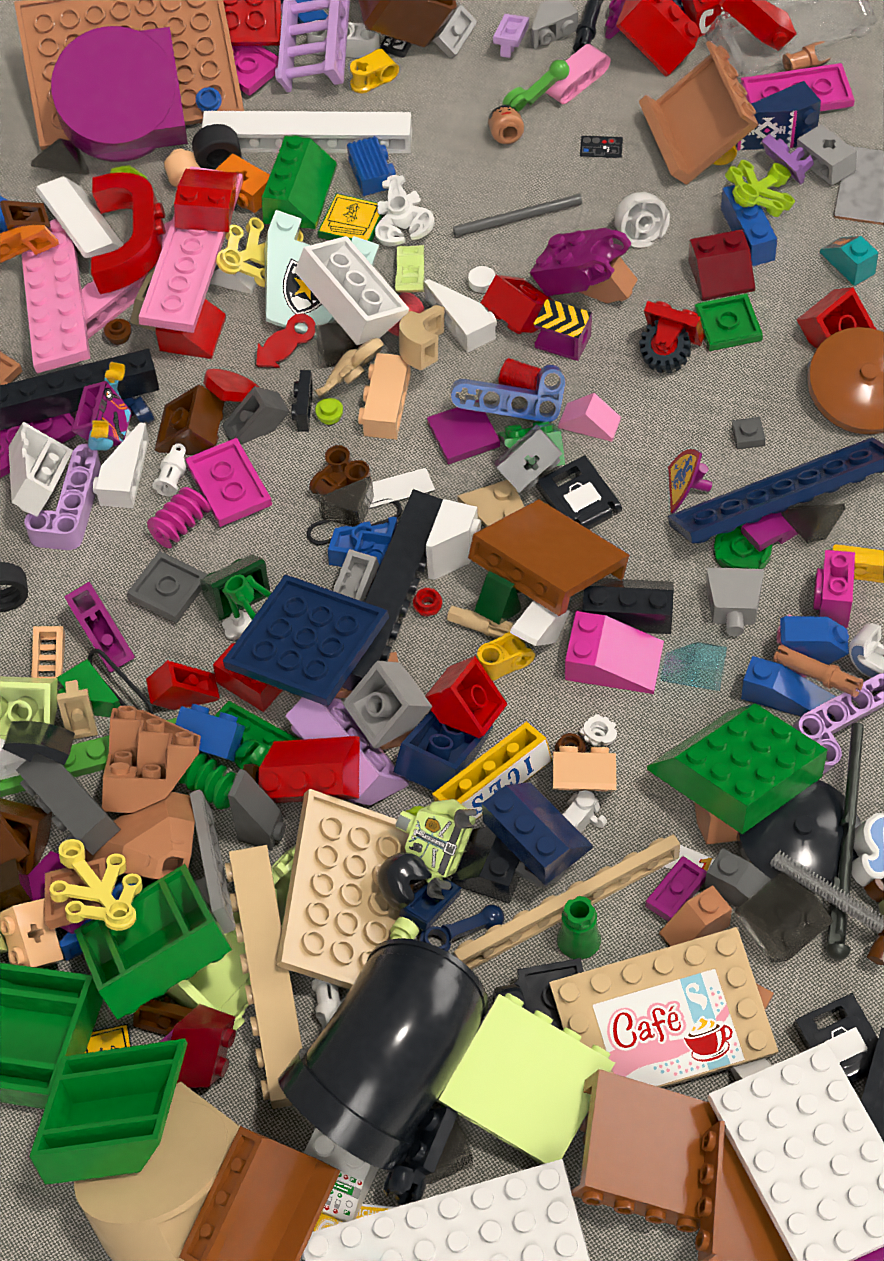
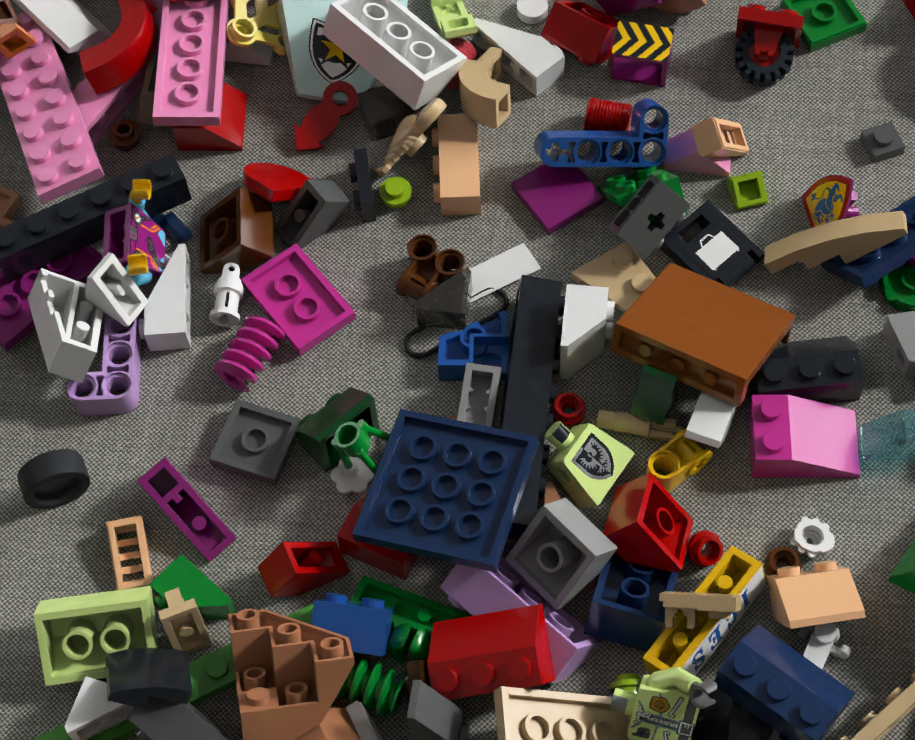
camera: 10 degrees left, 5 degrees up
(77, 448) = (114, 291): none -> white slope
(123, 676) = (192, 540): black piece -> none
(428, 641) = (586, 461): none -> yellowish green torso
(497, 759) = (718, 606): none -> tan plate
(500, 720) = (712, 552): none -> red plate
(604, 406) = (719, 138): none -> light nougat slope
(623, 453) = (747, 190): none -> lime slope
(686, 500) = (844, 237): none -> tan slope

